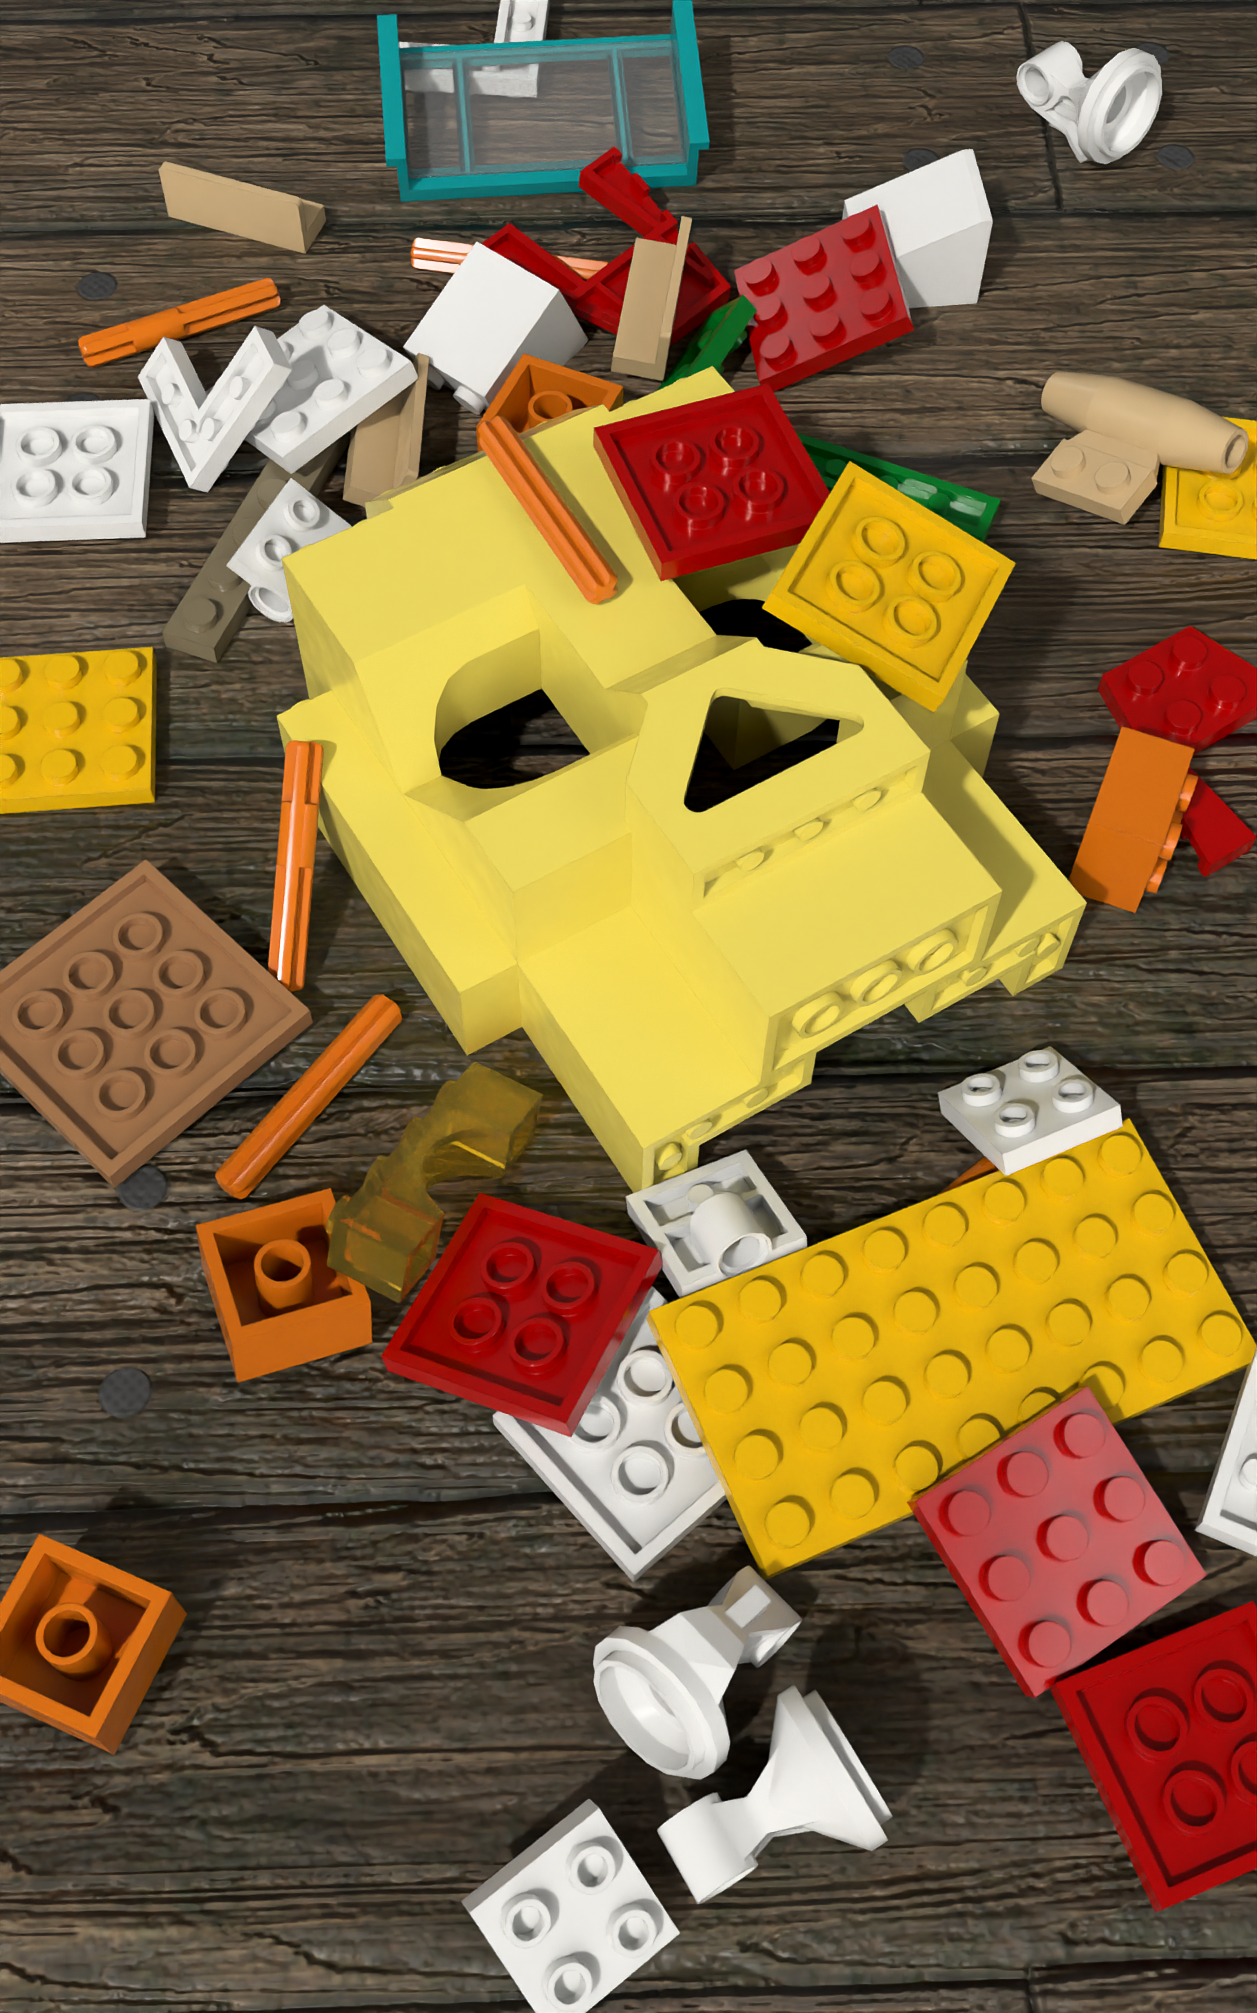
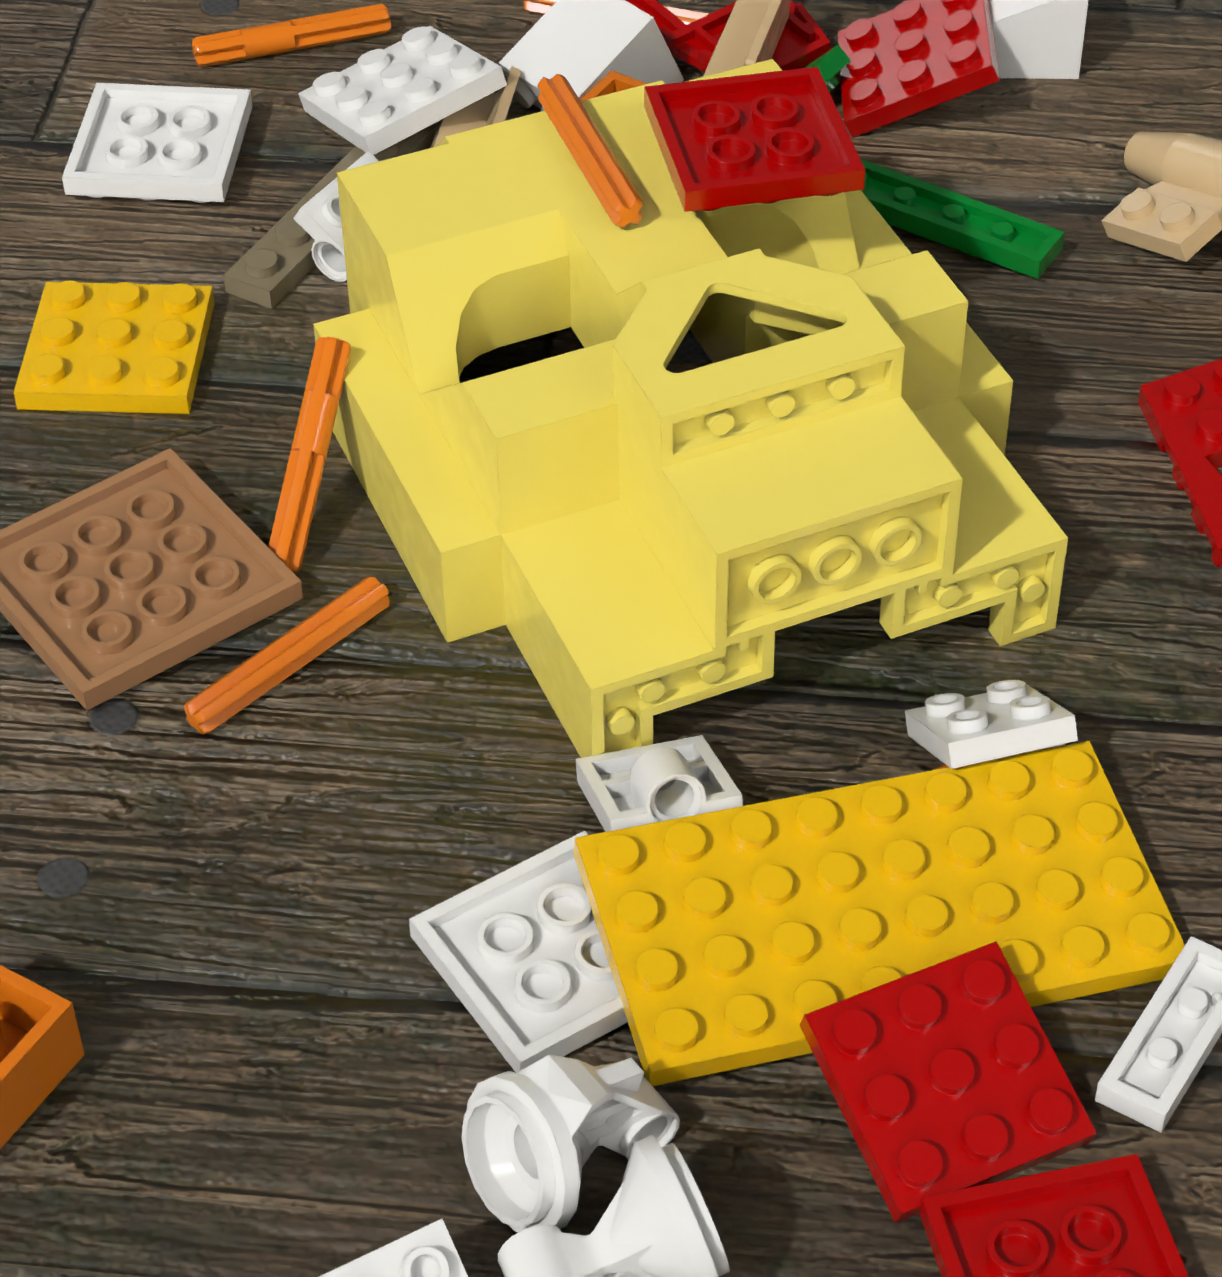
camera: 10 degrees right, 15 degrees down
(211, 428) = (299, 113): white plate -> none
(275, 1287) = (231, 789): orange brick -> none
(391, 1224) = (340, 729): clear yellow arch -> none
(523, 1313) = (455, 835): red plate -> none
(890, 587) = (897, 225): yellow plate -> none
(1134, 820) = (1138, 495): orange brick -> none

